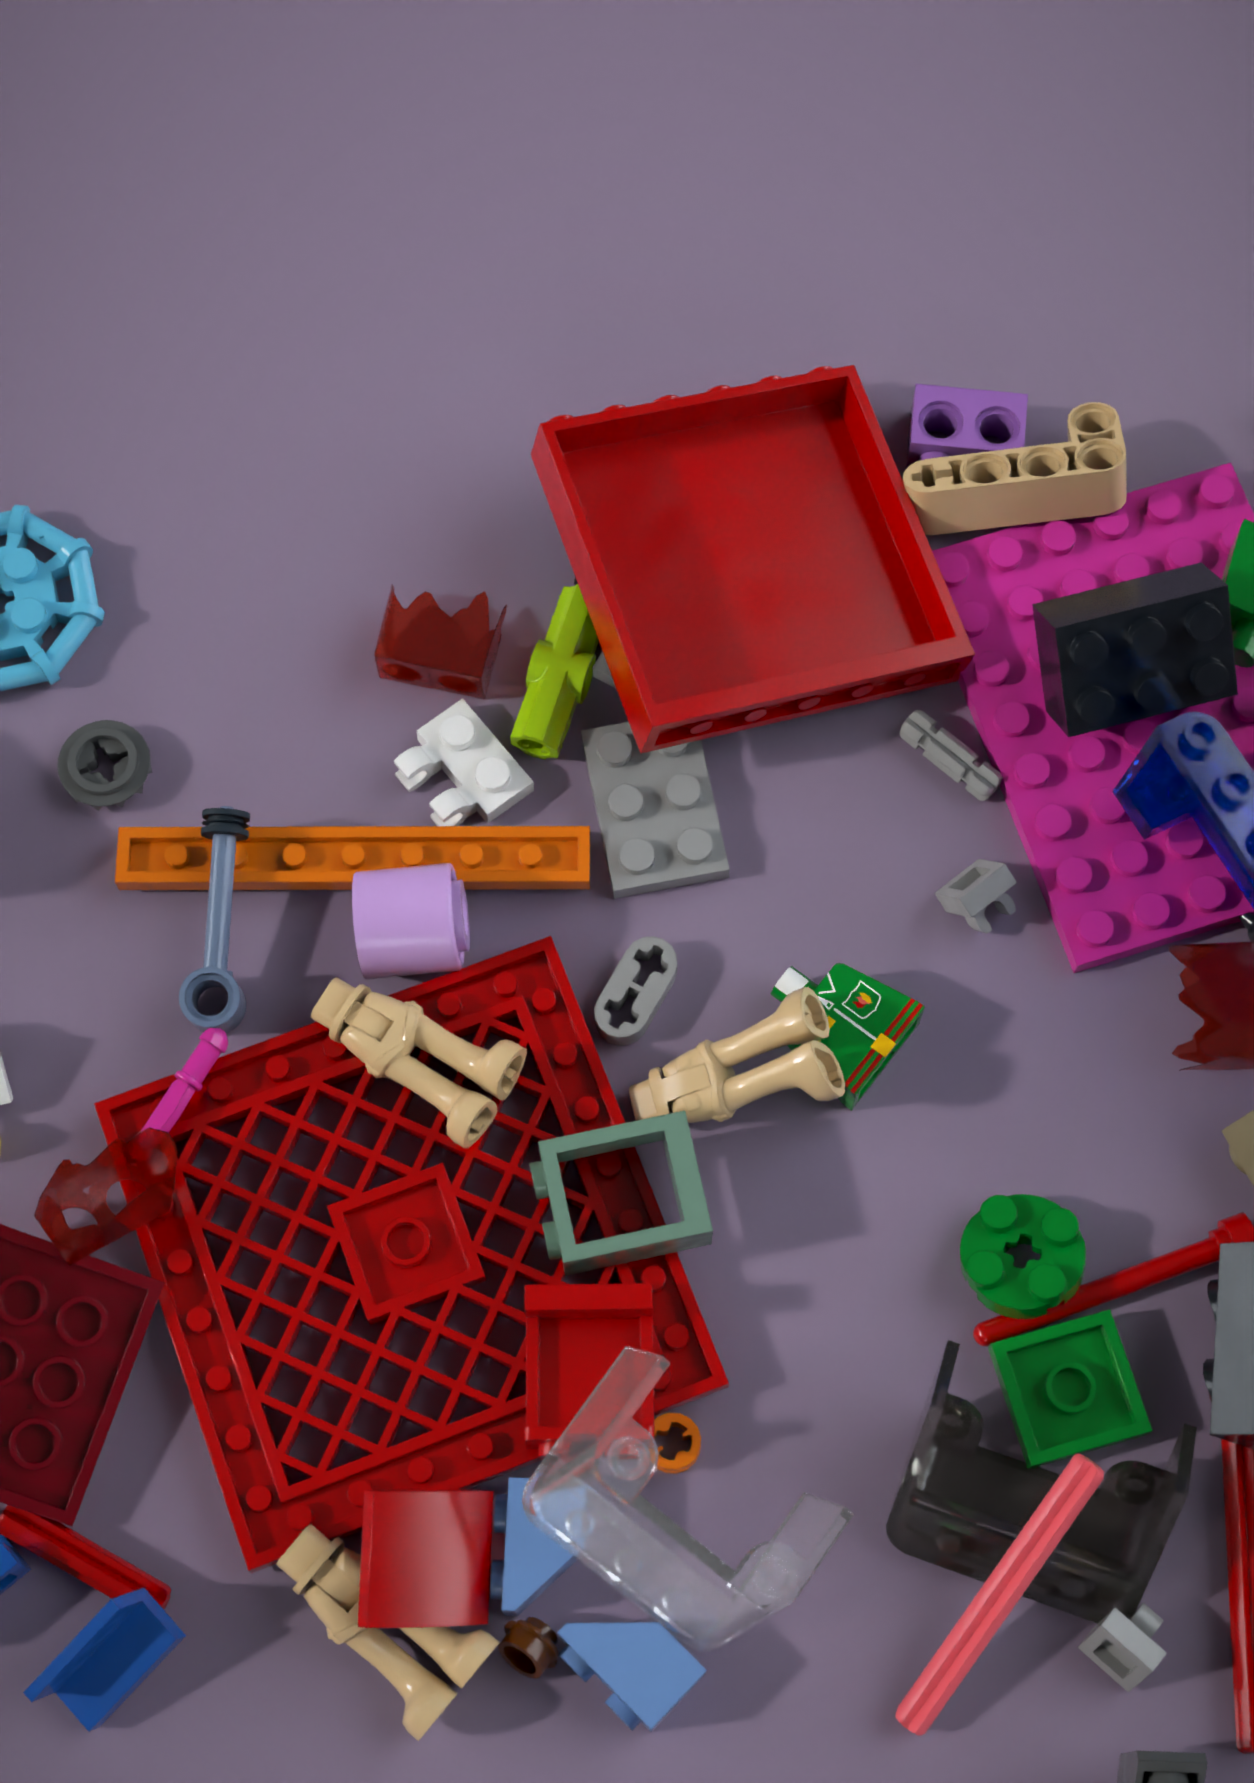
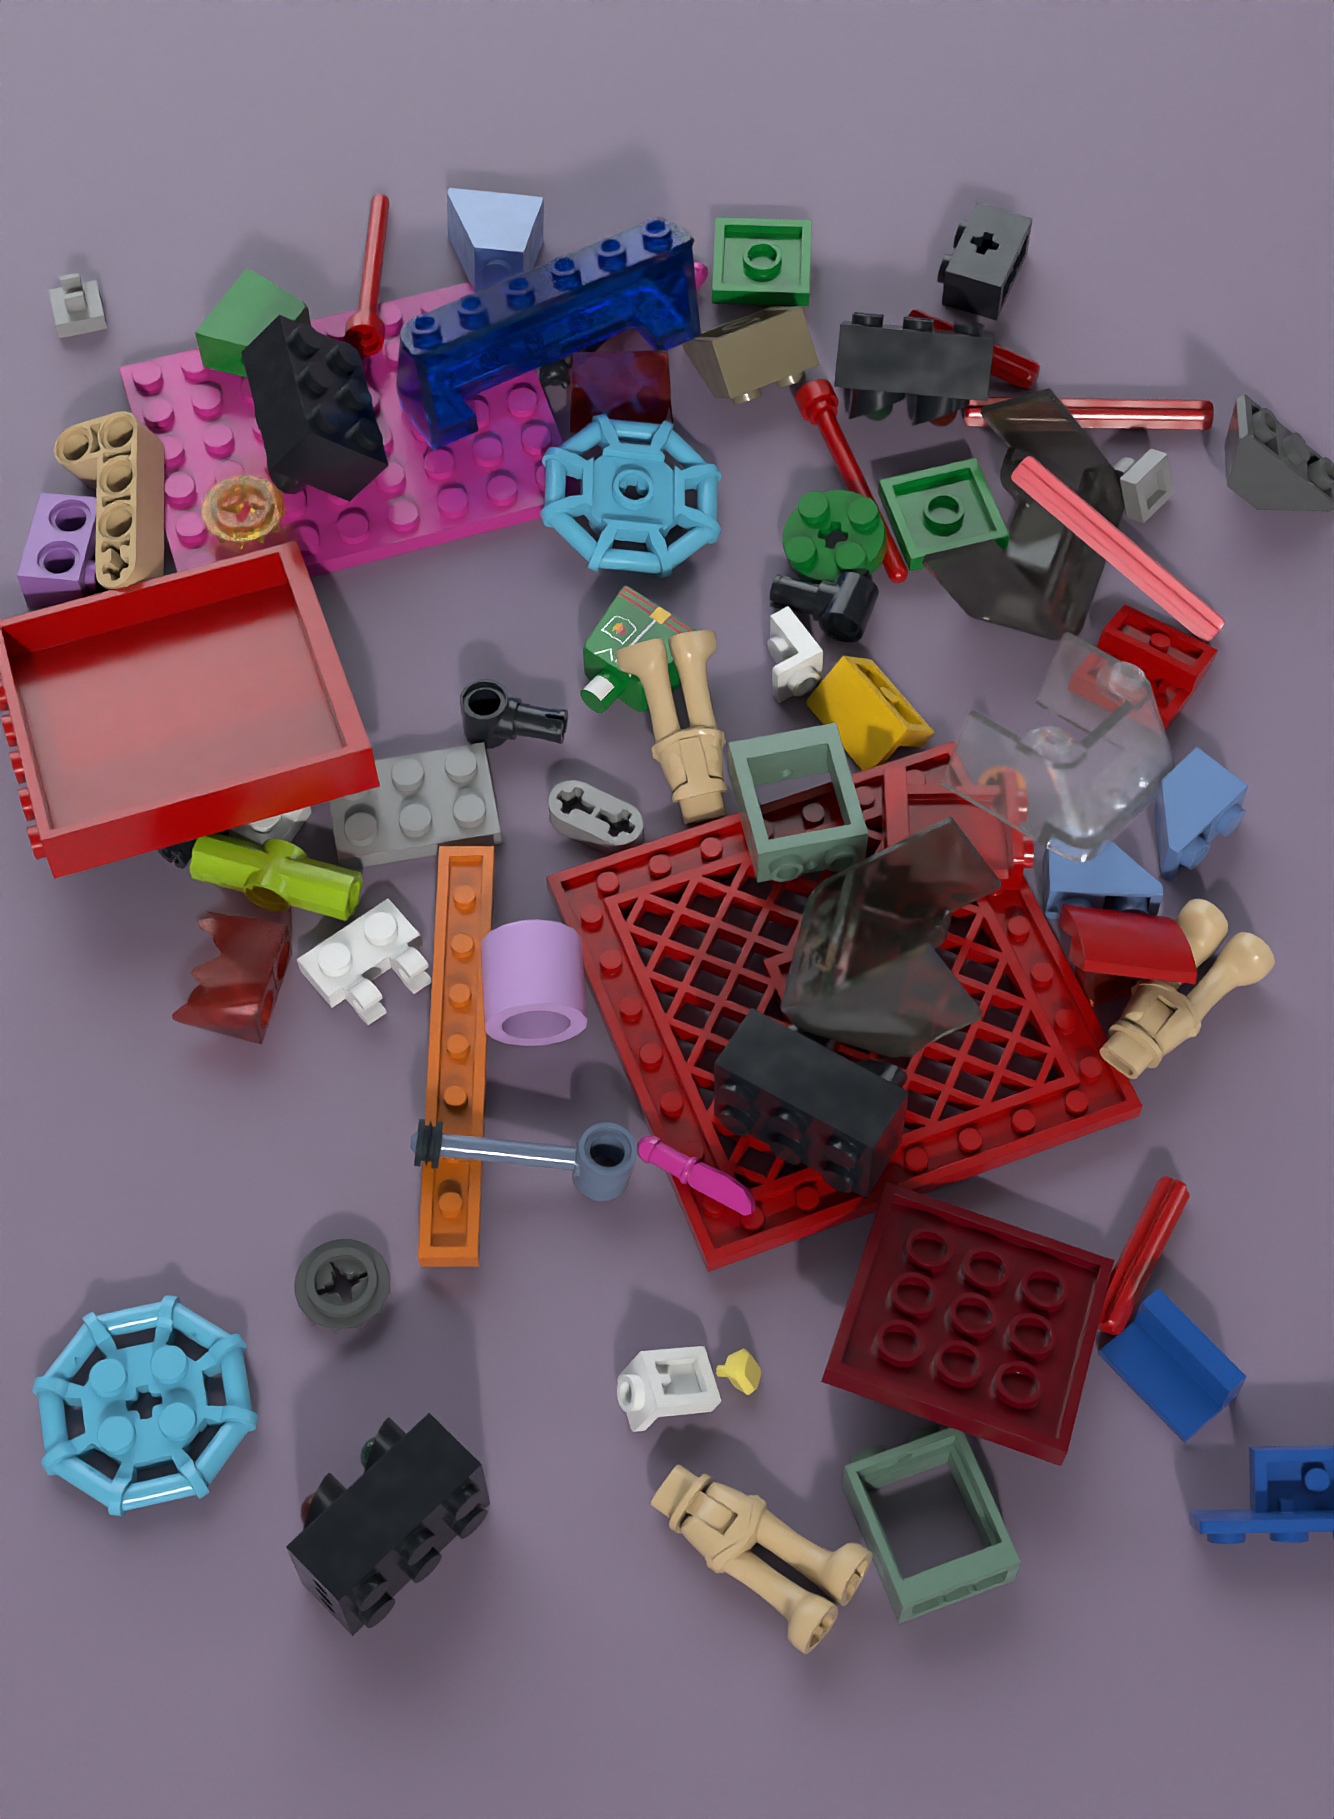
camera: 90 degrees left, 10 degrees down
(109, 1658) = (1230, 1215): blue panel -> none
(155, 1160) = (789, 1182): clear red piece -> none
(228, 1190) = (811, 1102): none -> black piece
(387, 1031) = (650, 997): tan piece -> none
(402, 1246) = (869, 941): none -> clear smoke windscreen
(529, 1646) = (1184, 885): reddish brown plate -> none
(757, 894) = (508, 718): none -> black pin
(777, 1292) = (867, 711): none -> yellow panel
(853, 1631) = (1166, 656): none -> red slope
(858, 1204) = (796, 655): none -> white bracket
(927, 1256) = (838, 606): none -> black pin
(950, 755) = (381, 579): light grey axle -> none
(975, 889) = (513, 558): light grey tile -> none
(993, 584) = (225, 502): none -> clear yellow gear
(1046, 1043) = (626, 519): none -> medium azure plate

